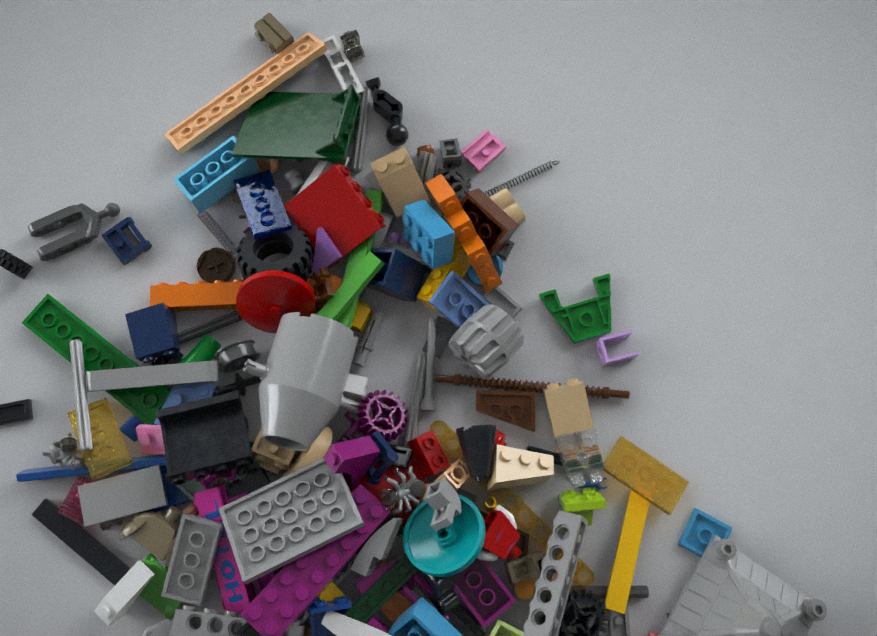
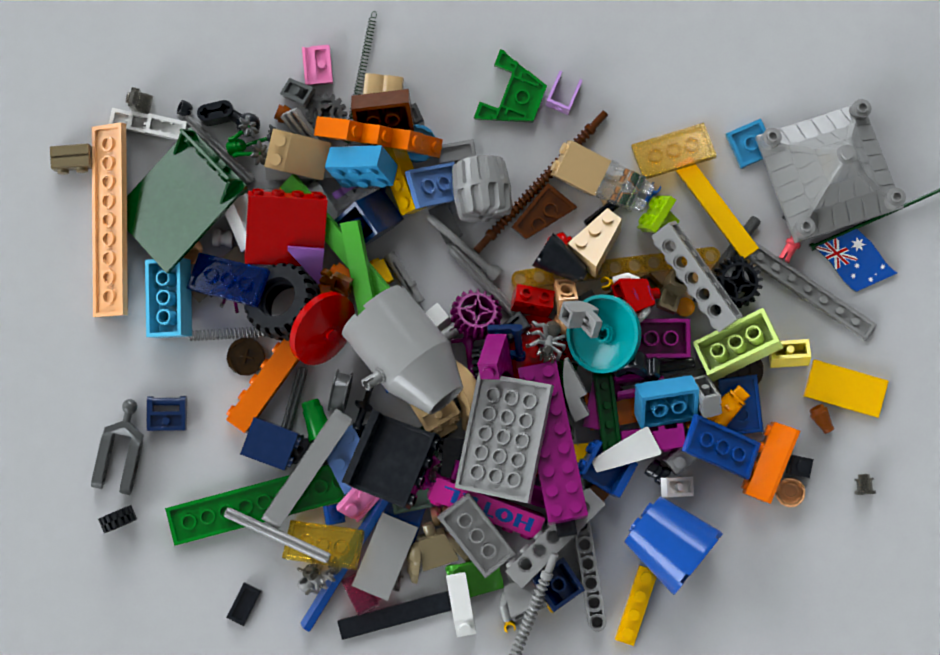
camera: 55 degrees left, 10 degrees up
(373, 139) = (236, 147): none -> plant

